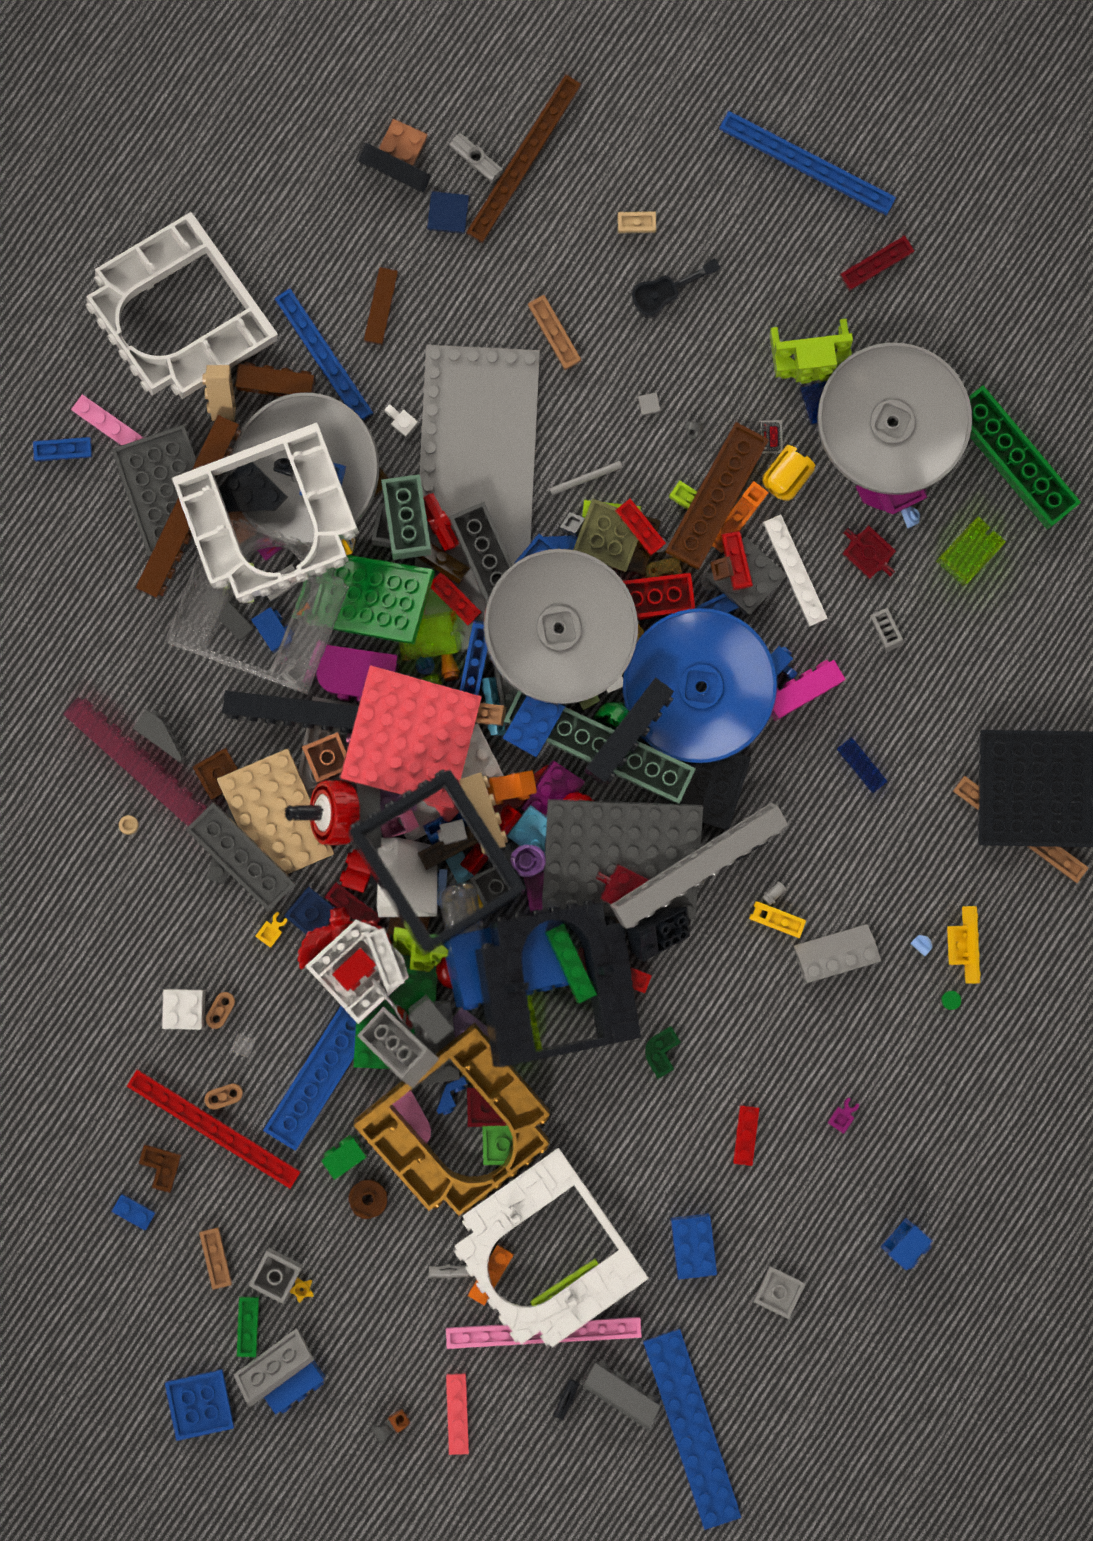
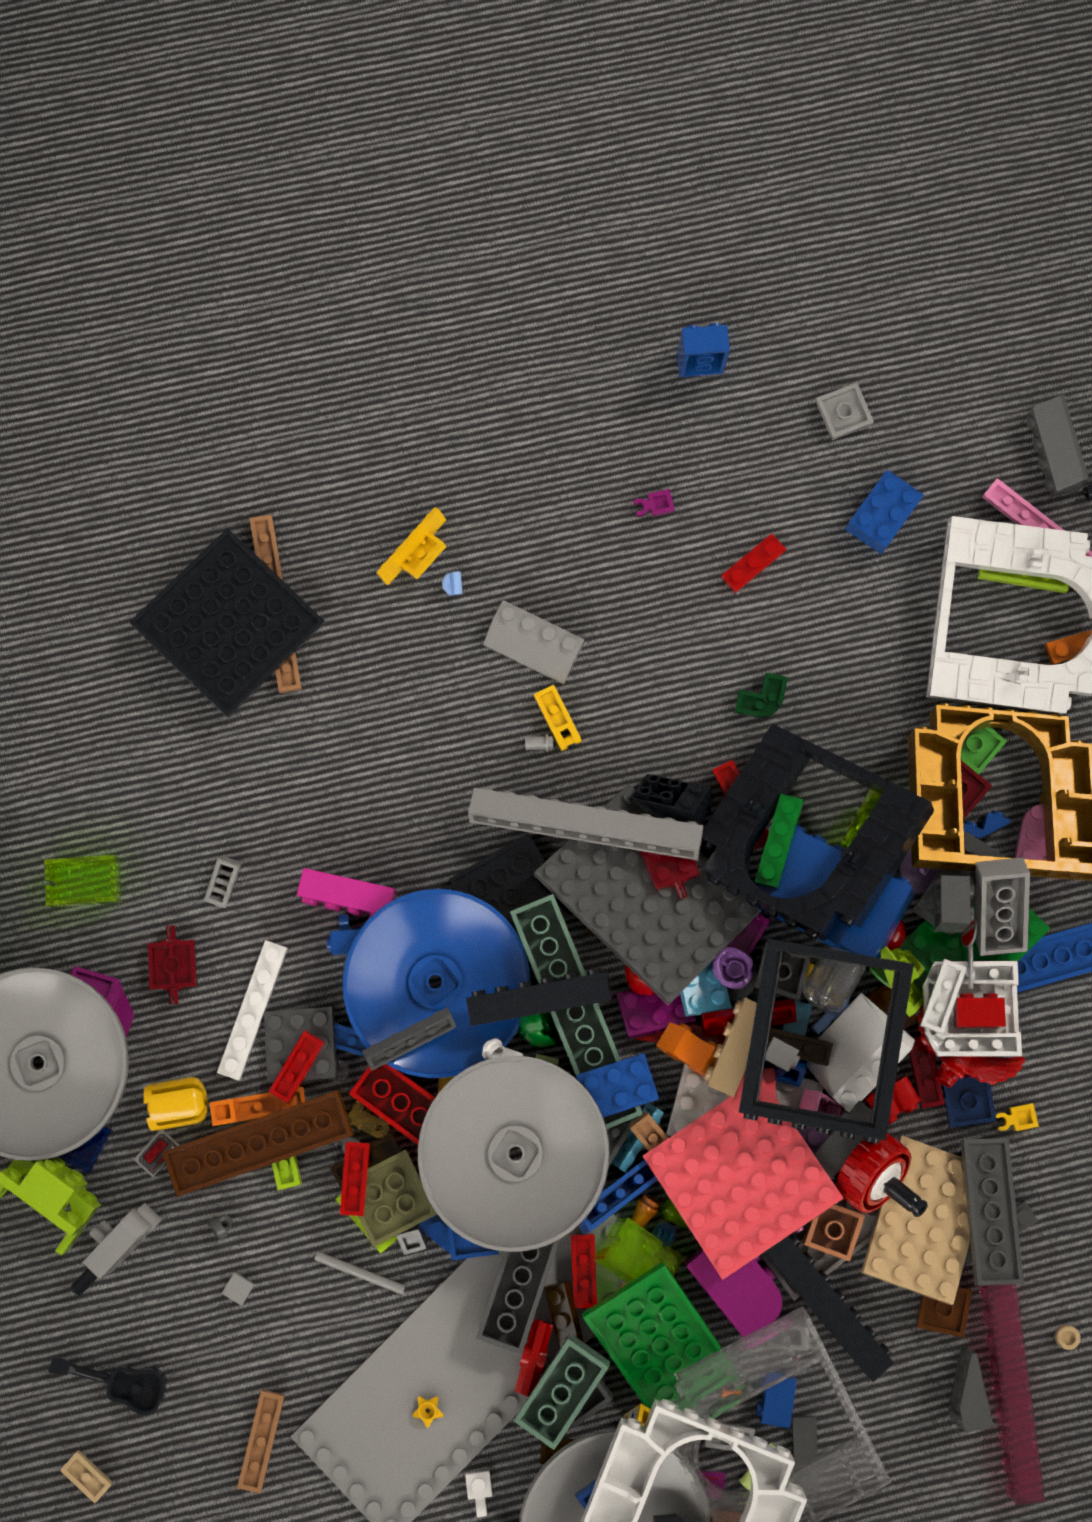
camera: 140 degrees left, 5 degrees down
(478, 437) = (421, 1412): none -> yellow plate
(628, 677) = (492, 1049): none -> white plate
(685, 636) = (409, 1039): none -> dark grey plate
(692, 1429) = (1018, 370): blue plate -> none
(722, 568) = (317, 1070): reddish brown plate -> none
(745, 362) = (115, 1245): none -> light grey piece
(861, 765) = (358, 783): clear blue plate -> none
(911, 516) = (104, 962): light blue plate -> none
(951, 1000) = (472, 516): green tile -> none

